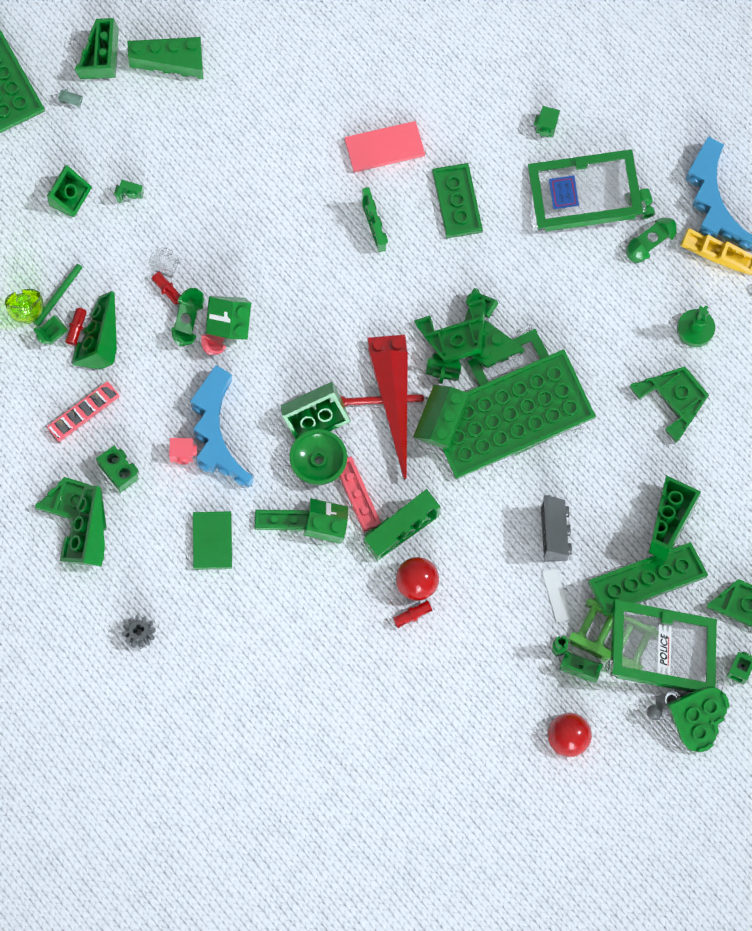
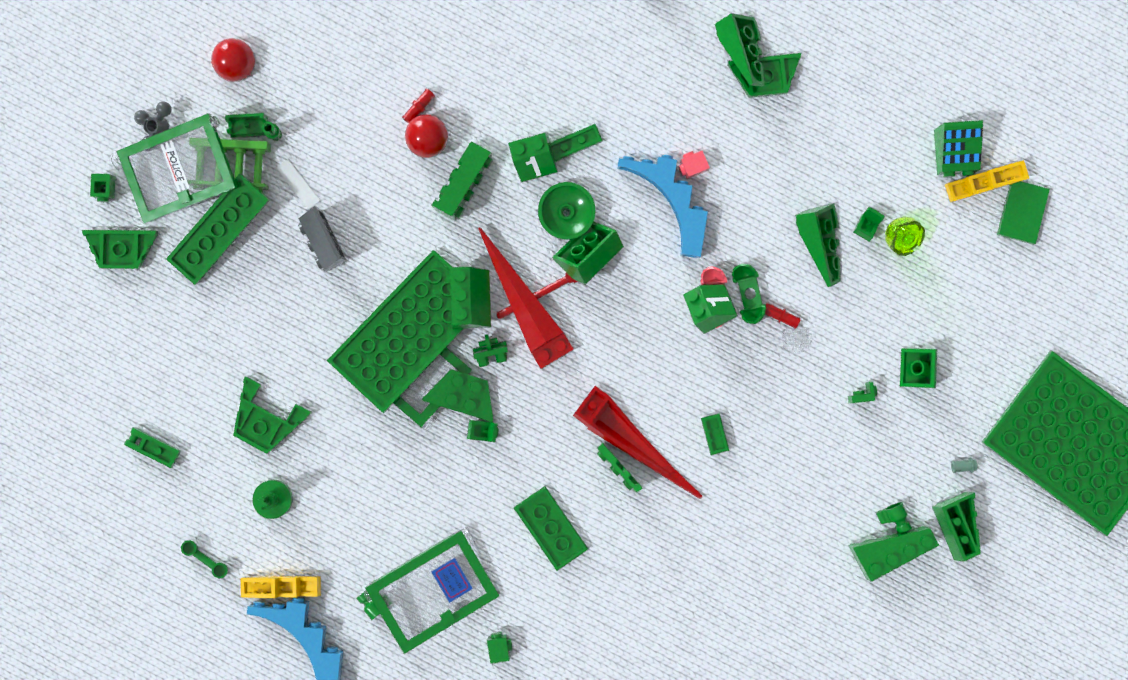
camera: 160 degrees right, 15 degrees up
(58, 294) = (878, 266): green bar -> none
(76, 327) = (847, 240): red axle -> none
(83, 411) = (801, 163): tile -> none
(114, 470) = (746, 117): green brick -> none
(150, 84) = (897, 514): none -> green piece
(212, 540) = (628, 95): green tile -> none
(275, 215) = (715, 434): none -> green plate
(359, 497) = (514, 195): coral tile -> none
(364, 262) = (611, 424): none -> red plate
(384, 146) = (643, 552): coral tile -> none
(459, 339) = (486, 381): green wing -> none
(639, 247) = (356, 555): green piece -> none
(673, 513) = (218, 299): green wedge -> none
(698, 717) = (121, 121): green plate -> none

